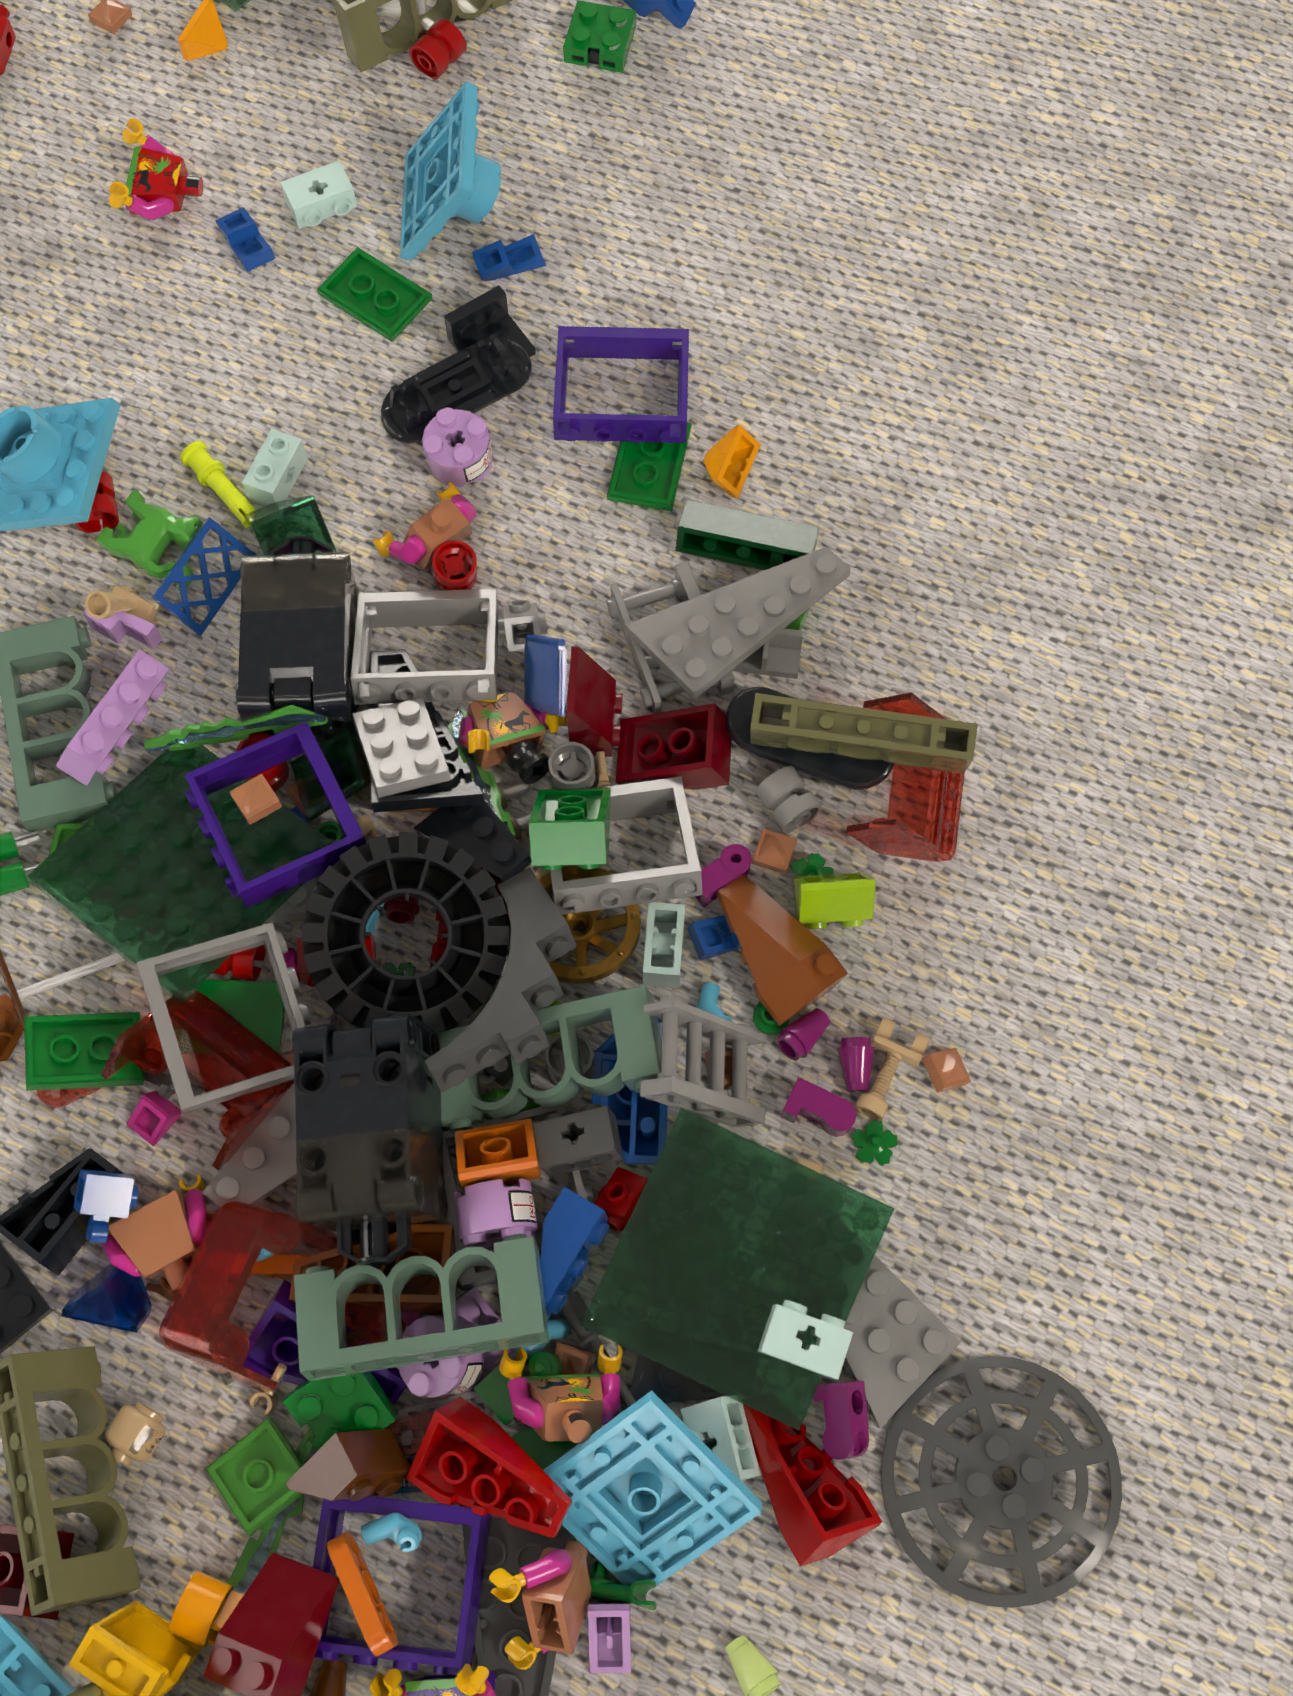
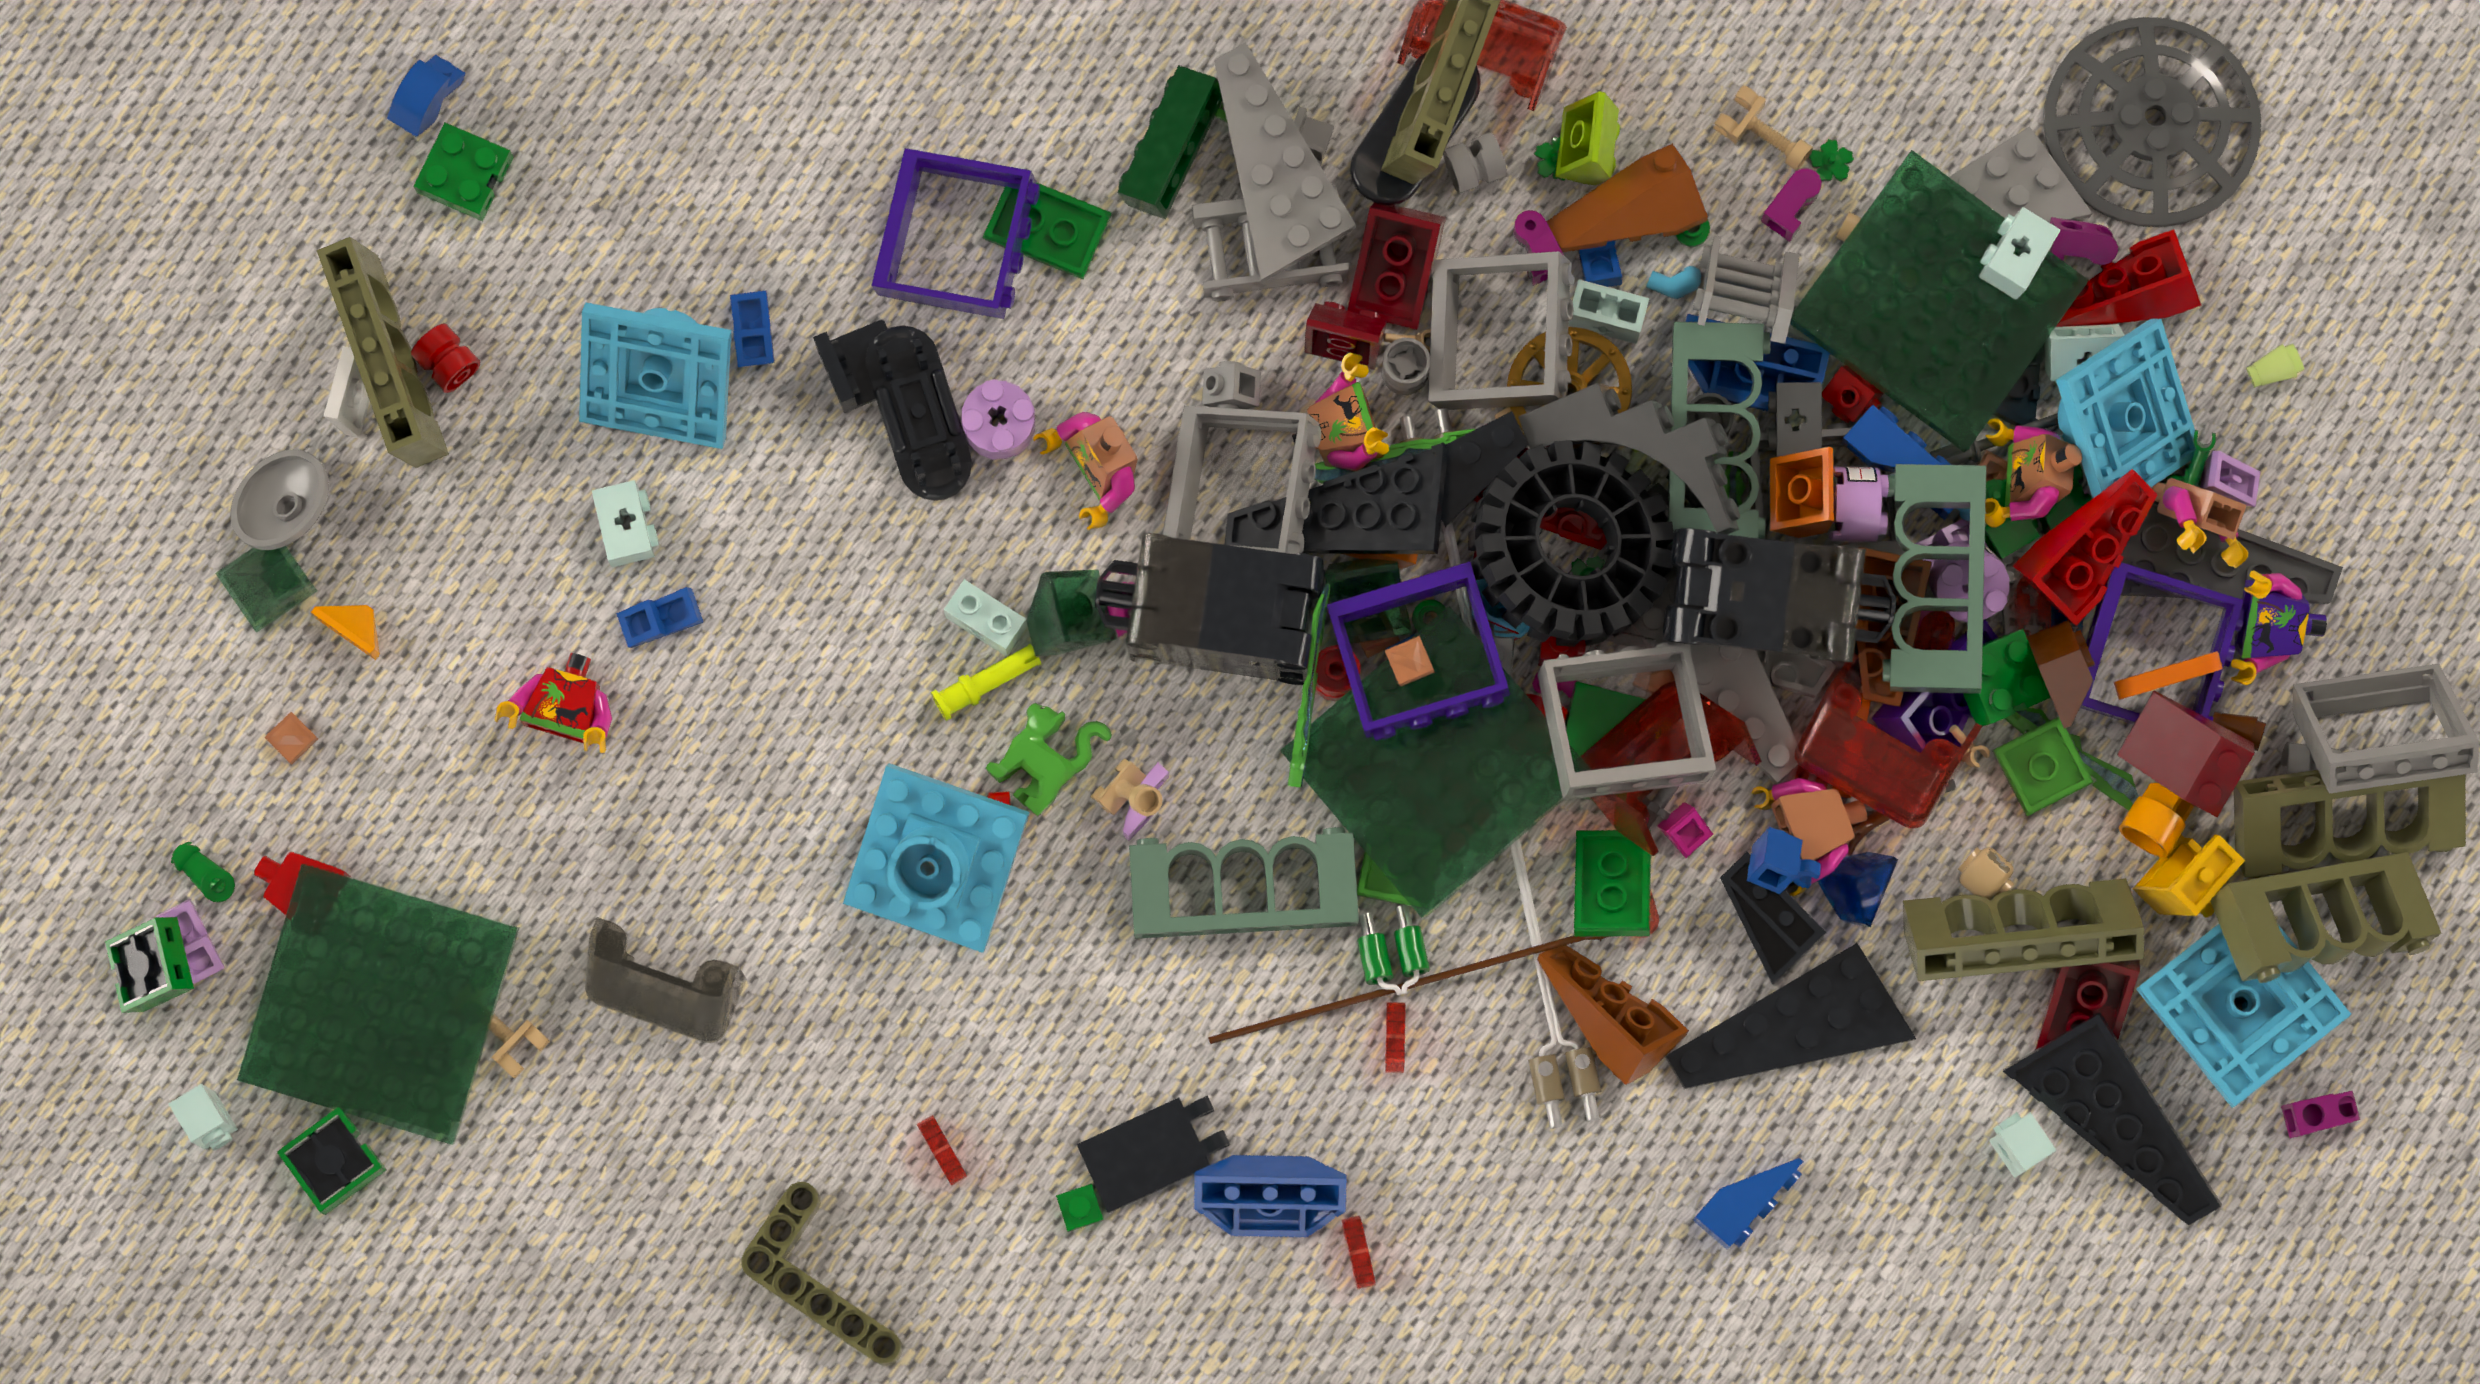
camera: 80 degrees left, 10 degrees up
(112, 717) = (1263, 811): lavender brick -> none
(176, 575) = (1104, 731): blue window -> none
(374, 294) = (767, 483): green tile -> none
(397, 1528) = (2118, 637): medium azure arm -> none
(401, 747) = (1369, 517): plate -> none
(454, 566) = (1153, 443): red wheel -> none
(528, 761) = (1387, 406): black wheel -> none
(545, 674) = (1313, 364): blue window -> none
(570, 828) = (1484, 366): slope -> none
(732, 460) = (1066, 142): light orange slope -> none
(774, 851) = (1521, 189): nougat tile -> none
(801, 1035) = (1719, 204): magenta cone -> none
(856, 1062) = (1751, 158): magenta cone -> none
(946, 1070) = (1775, 78): nougat tile -> none

